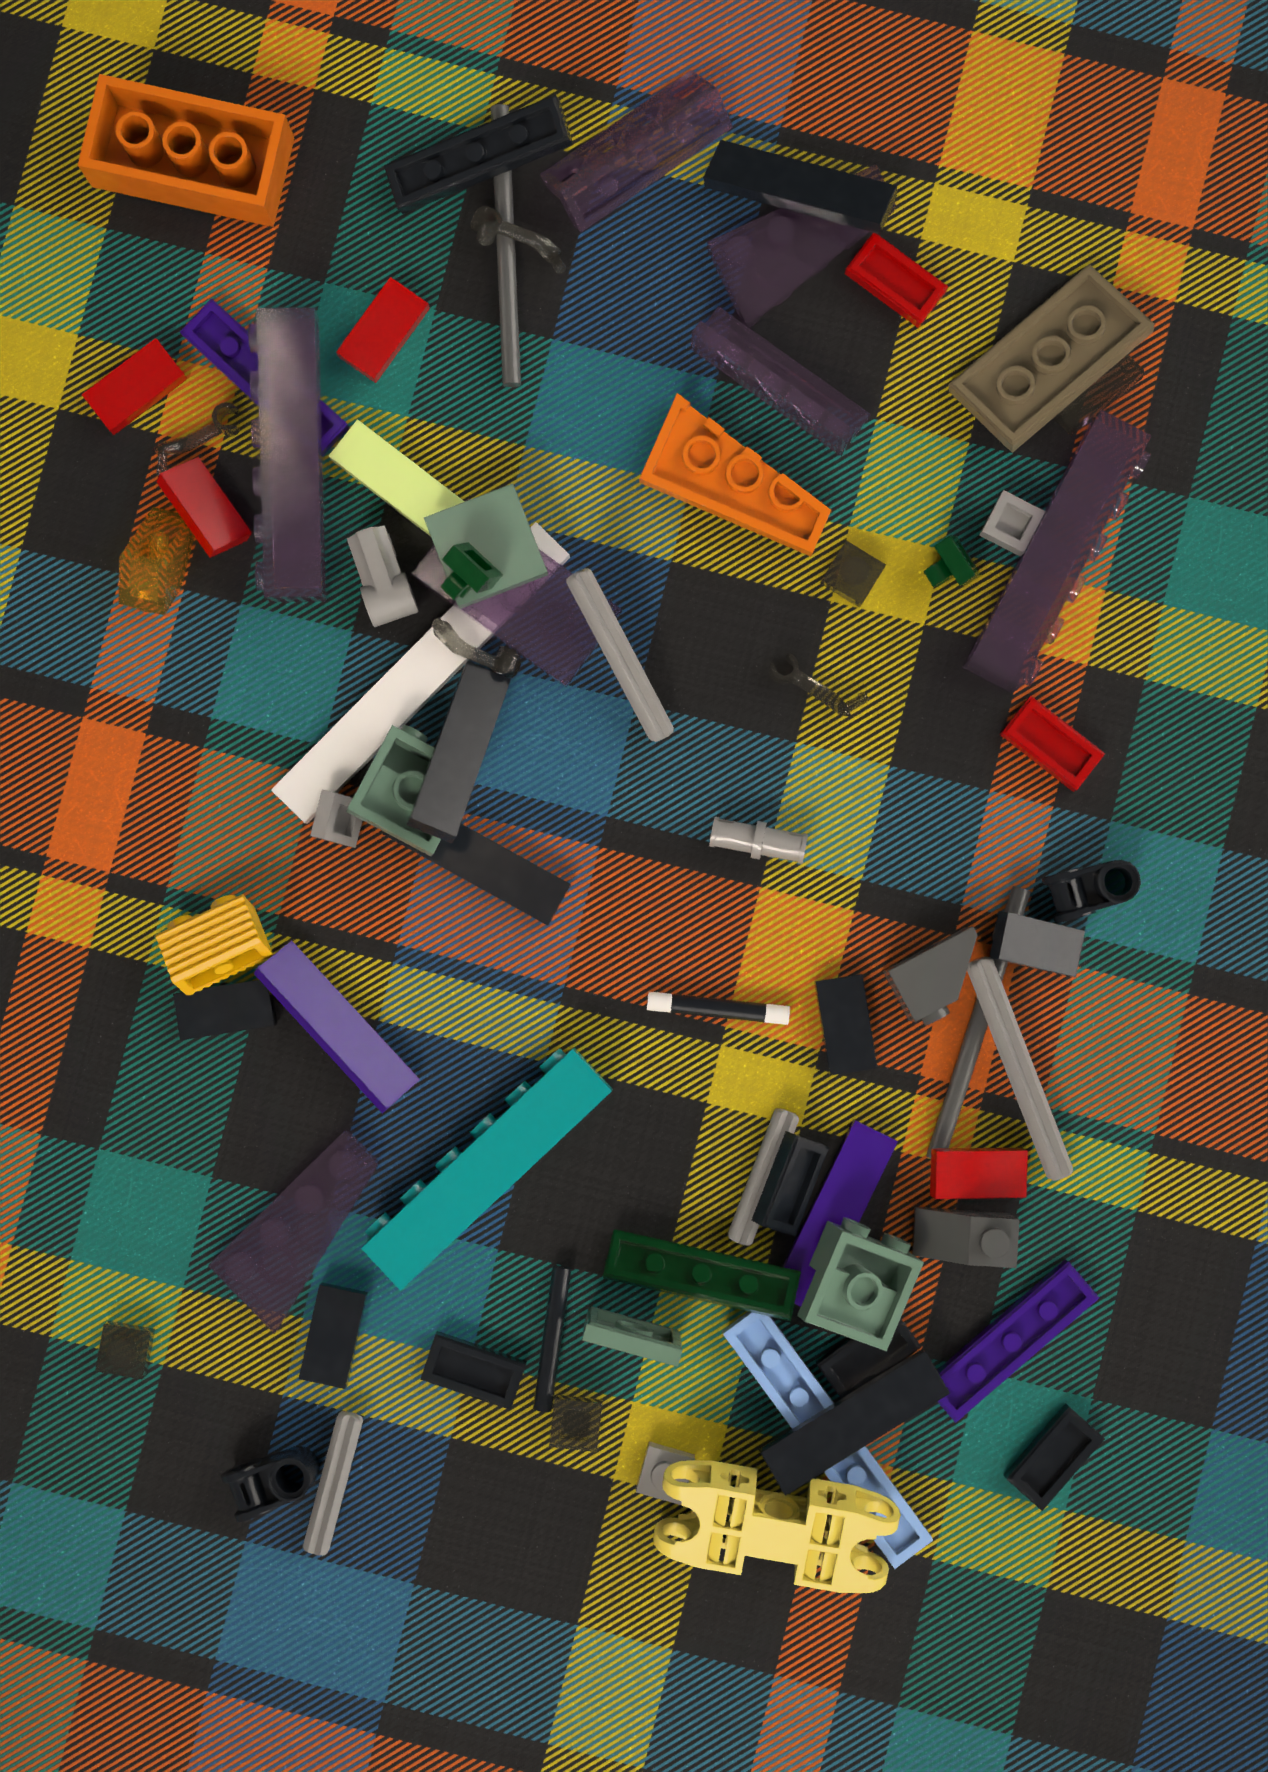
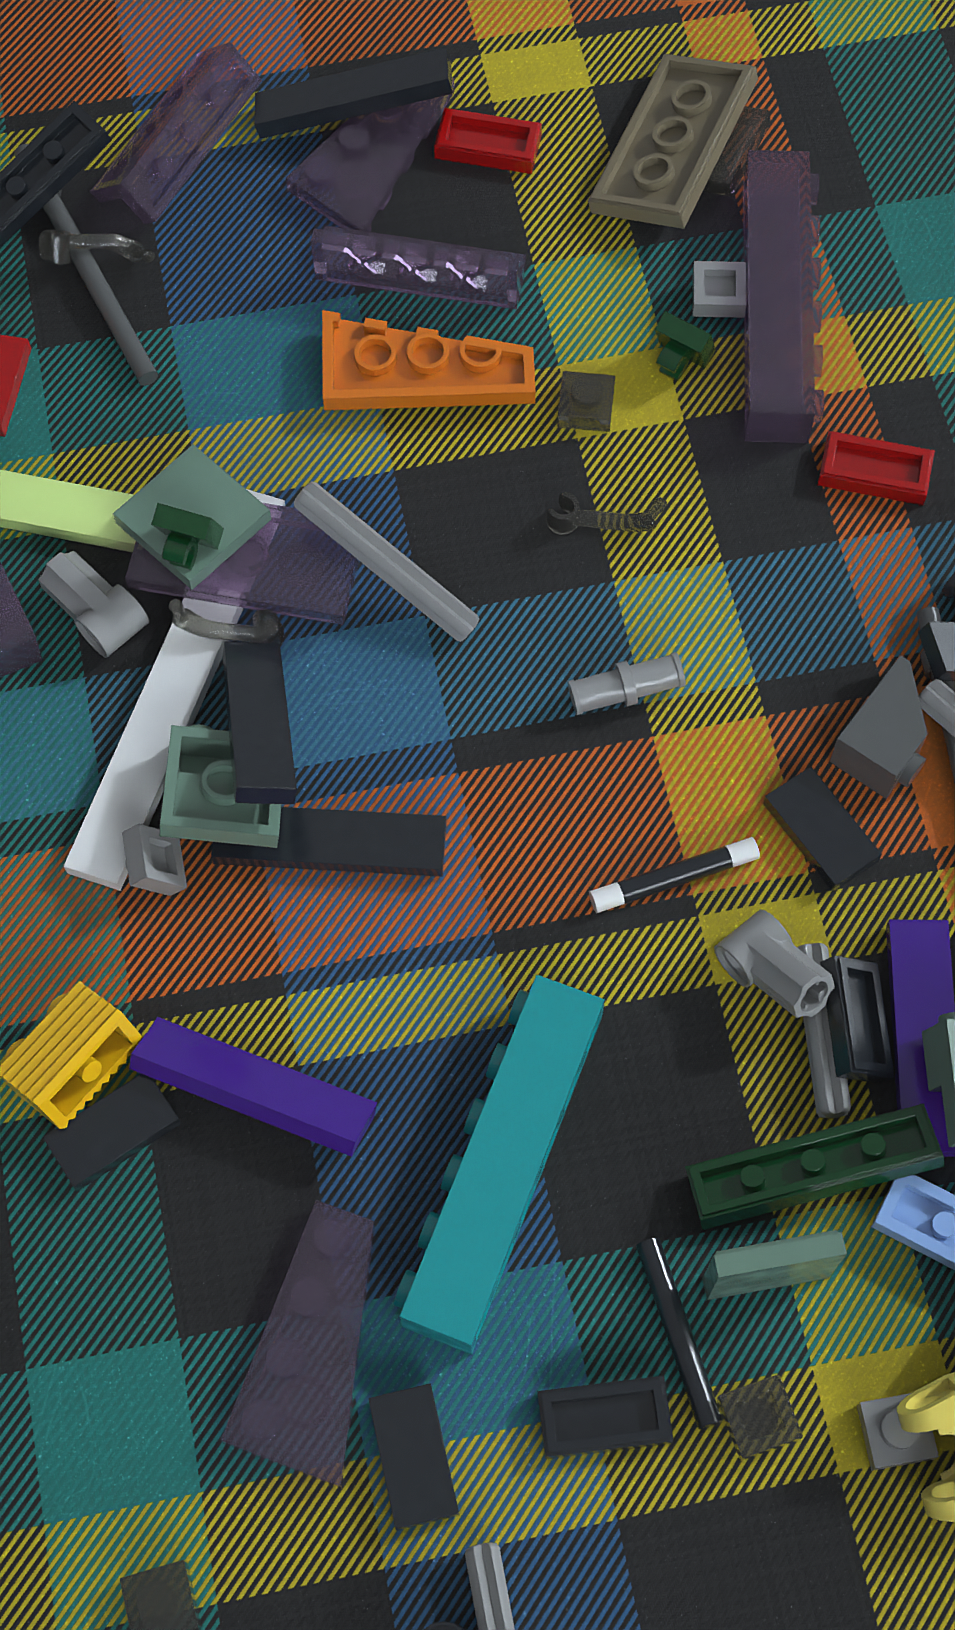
camera: 20 degrees left, 20 degrees down
(749, 1108) = (765, 955): none -> light grey piece

